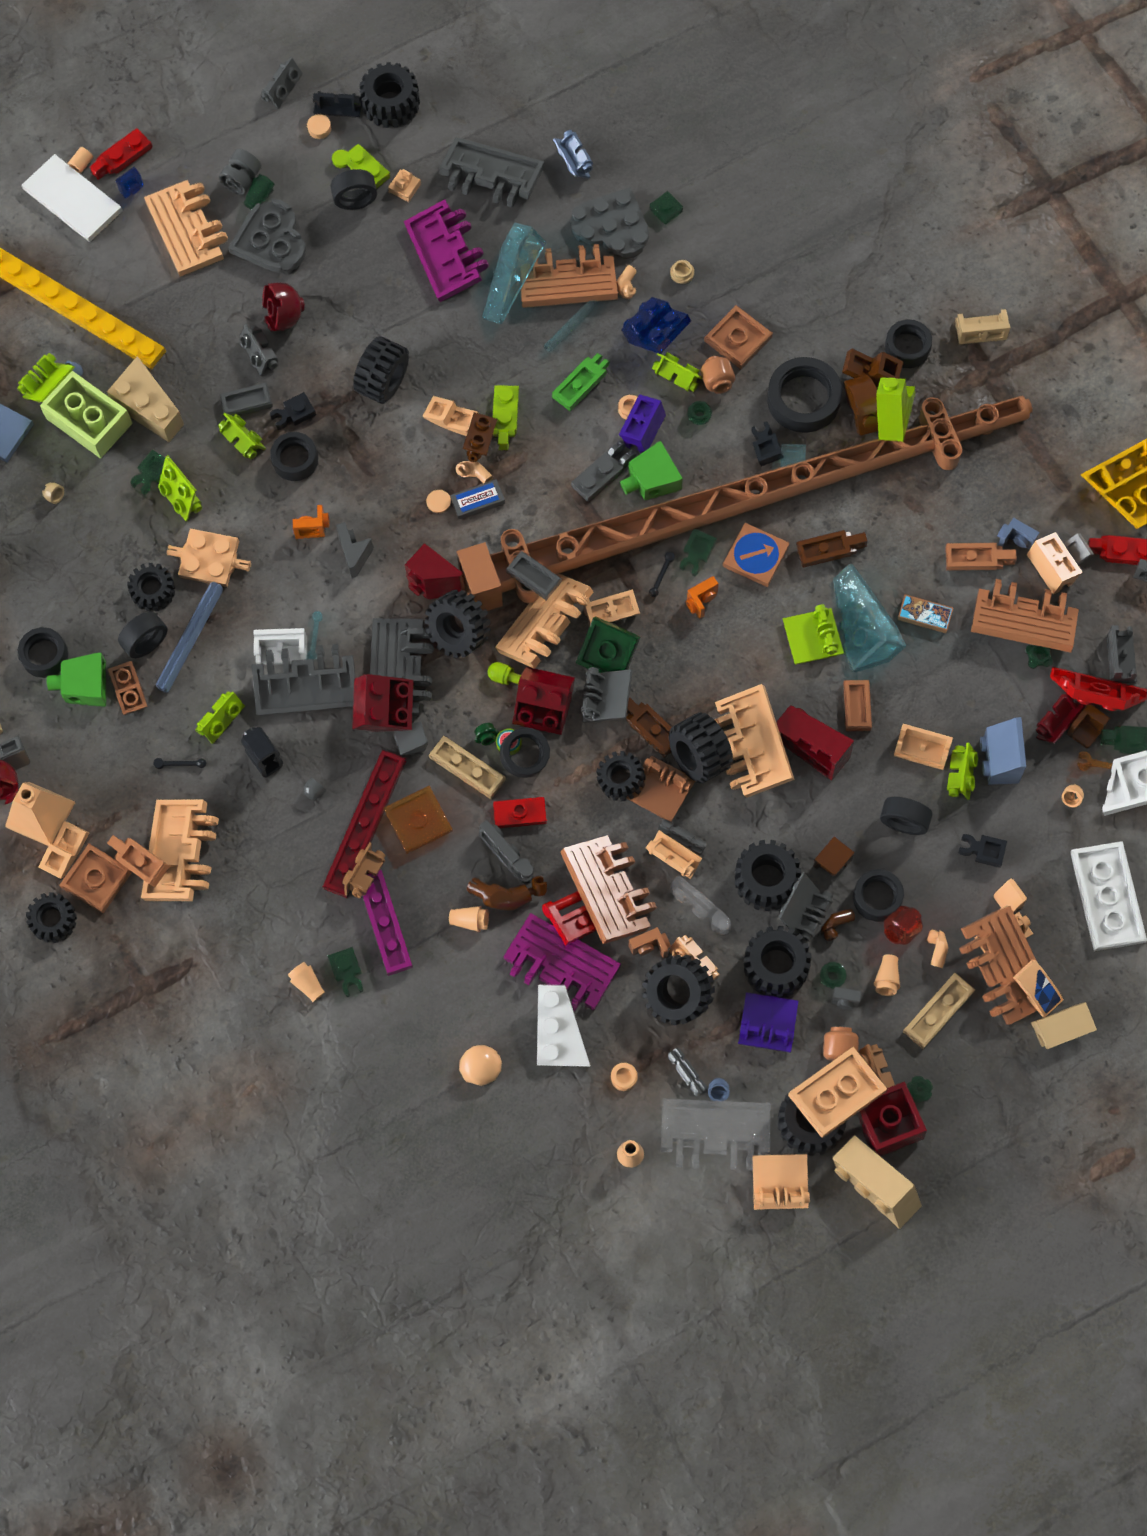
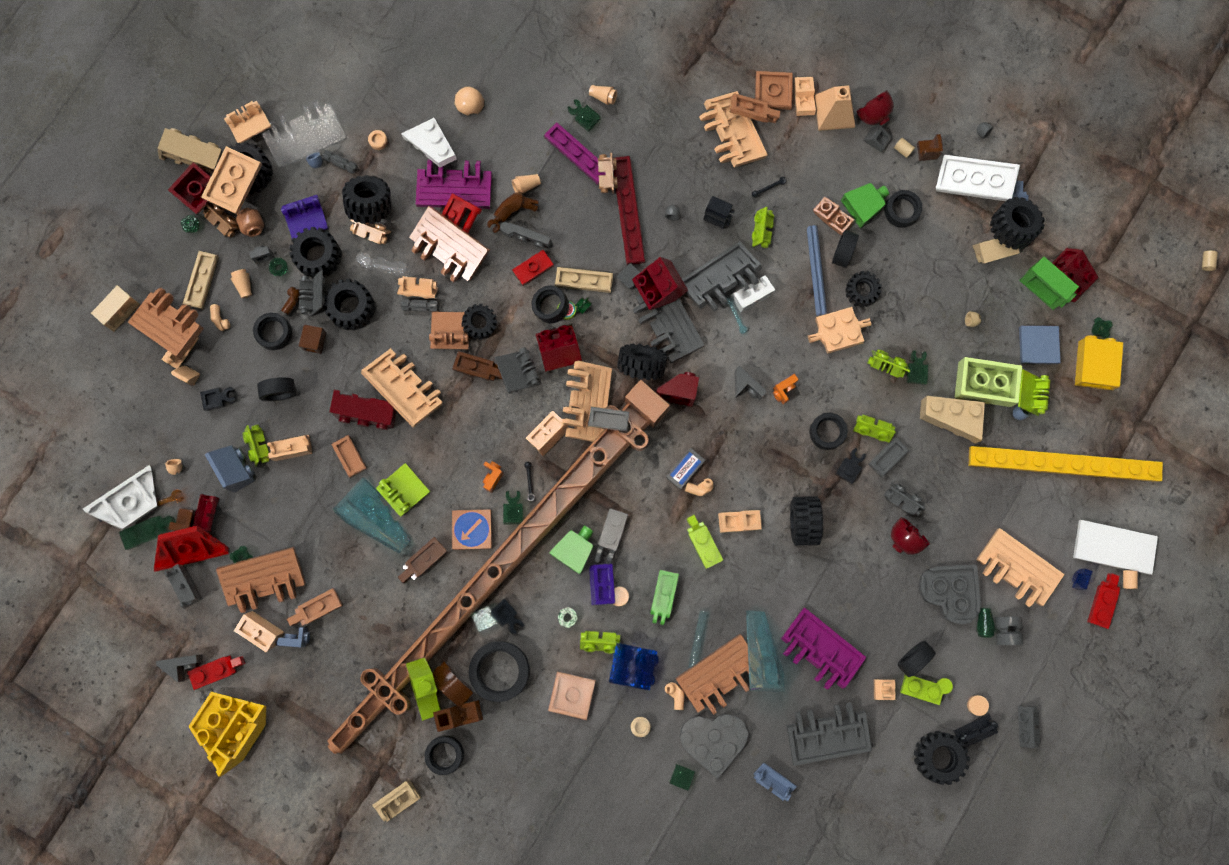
camera: 145 degrees right, 10 degrees up
(40, 907) = (788, 42): black tyre -> none
(418, 819) = (594, 228): clear orange plate -> none
(438, 501) = (711, 454): light nougat piece -> none
(479, 436) = (709, 511): reddish brown hinge -> none
(503, 674) = (596, 353): lime cylinder -> none
(607, 647) = (533, 402): dark green plate -> none
(633, 1159) = (348, 94): light nougat cone -> none
(644, 943) = (405, 225): nougat bracket -> none
(700, 747) = (432, 360): black tyre -> none
(717, 374) = (569, 652): nougat head -> none
(903, 925) = (245, 318): clear red head -> none
(925, 613) = (333, 547): tile -> none
(1039, 988) = (138, 318): slope -> none
(1078, 548) = (247, 650): light grey plate -> none
(1108, 896) = (123, 411): white tile -> none

